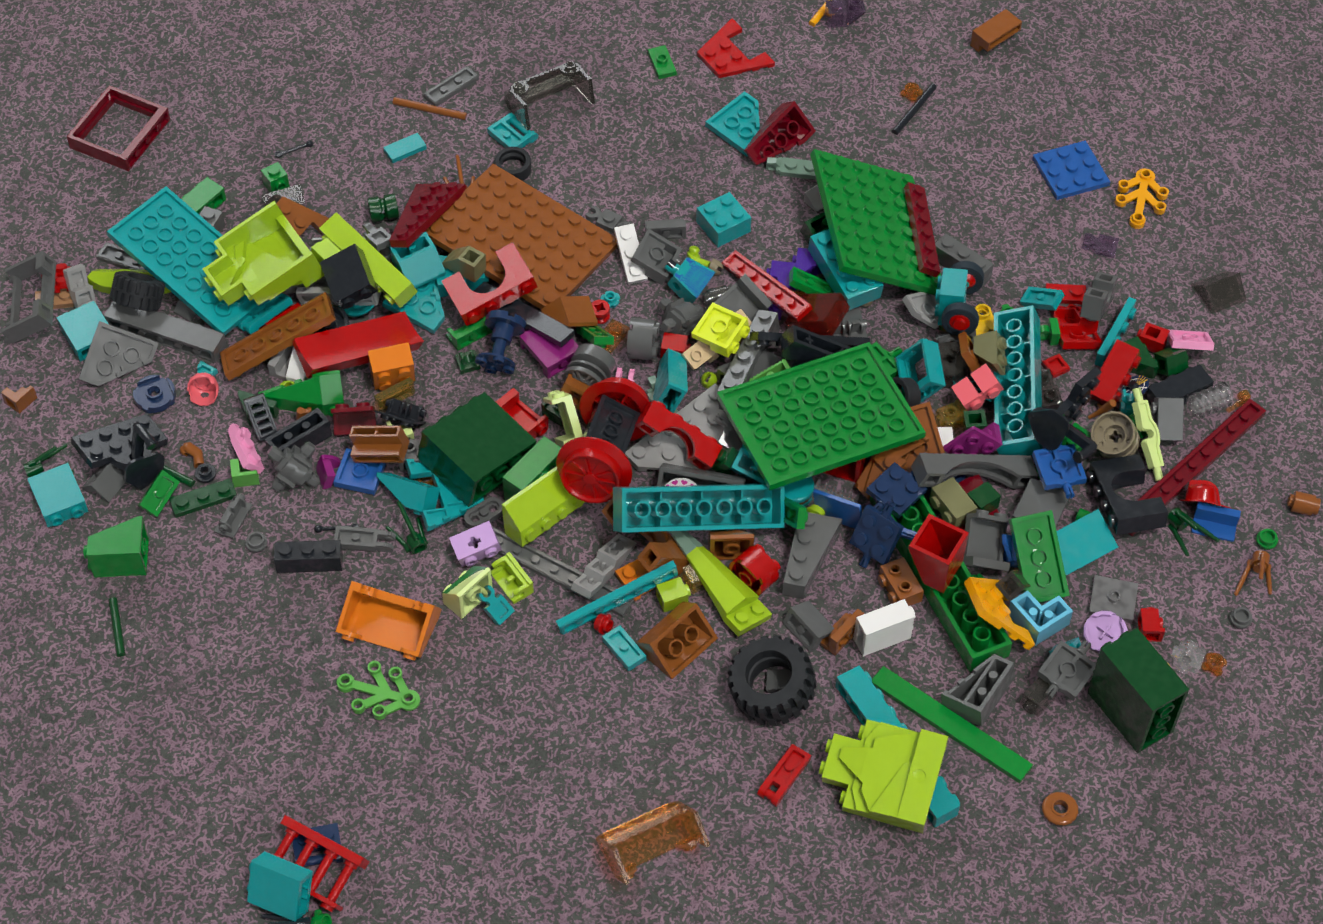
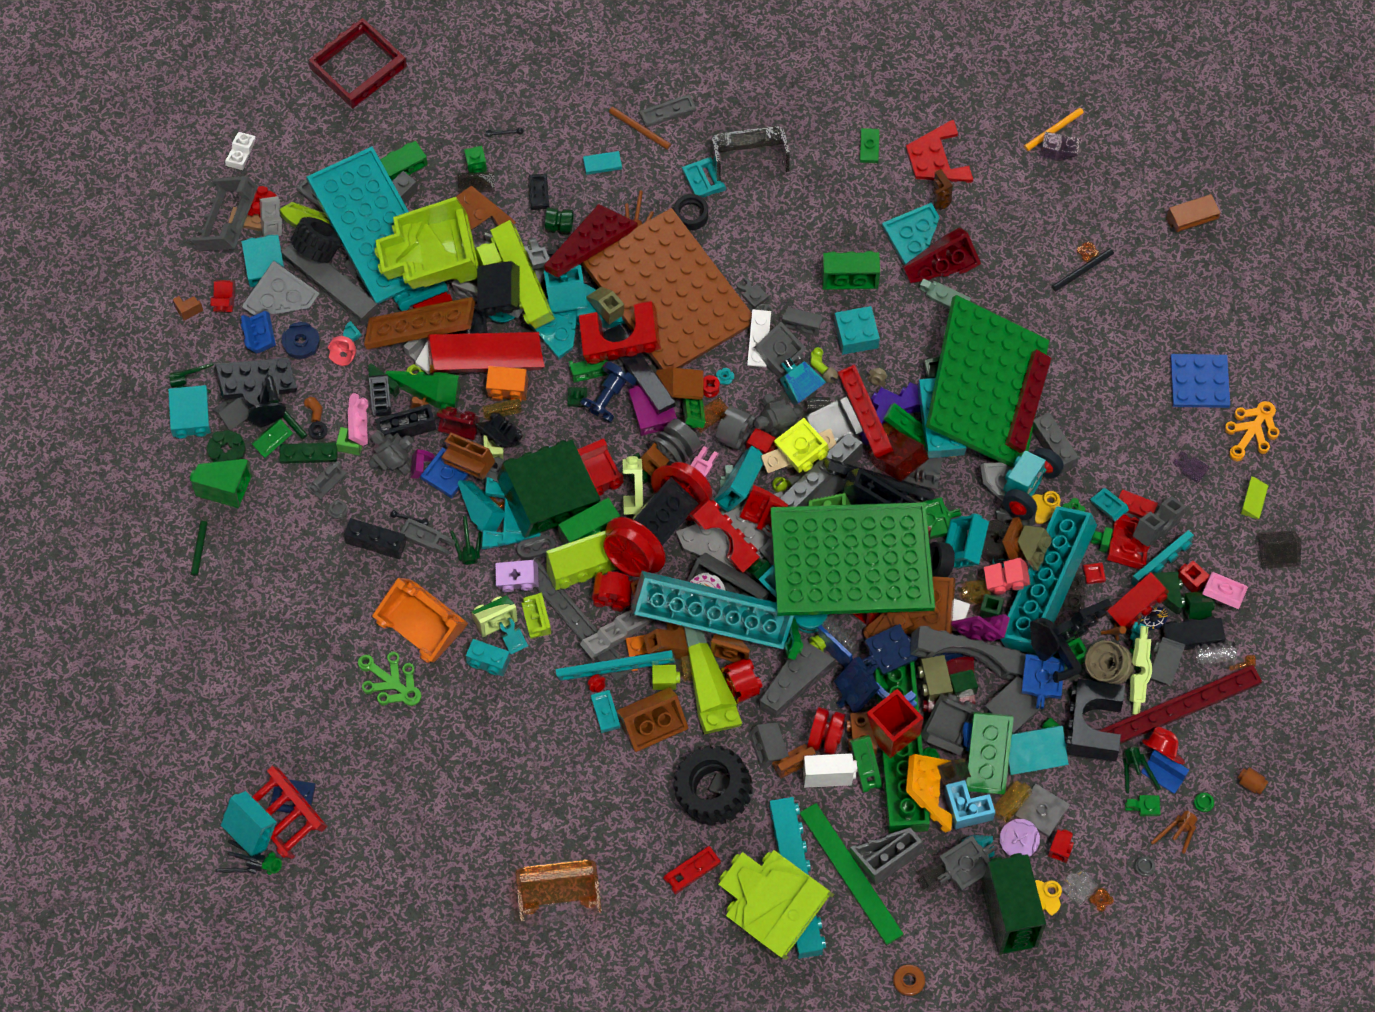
camera: 20 degrees right, 10 degrees up
(23, 239) = (240, 150): none -> white slope
(55, 375) = (223, 296): none -> red brick
(104, 511) = (224, 438): none -> dark green plate
(106, 398) = (258, 332): none -> blue bracket
(351, 189) = (538, 191): none -> black plate
(477, 634) = (487, 657): none -> teal brick
(583, 526) = (612, 590): none -> red brick
(695, 168) = (850, 270): none -> green brick
(702, 399) = (758, 507): none -> red slope
(751, 74) = (942, 190): none -> reddish brown bracket
(762, 250) = (877, 376): none -> dark tan plate
(864, 589) = (826, 731): none -> red wheel
(923, 610) = (866, 763): none -> green plate
(1082, 595) = (1012, 800): none -> clear yellow bracket
(1173, 254) = (1254, 498): none -> lime slope
(1213, 560) = (1147, 805): none -> green plate

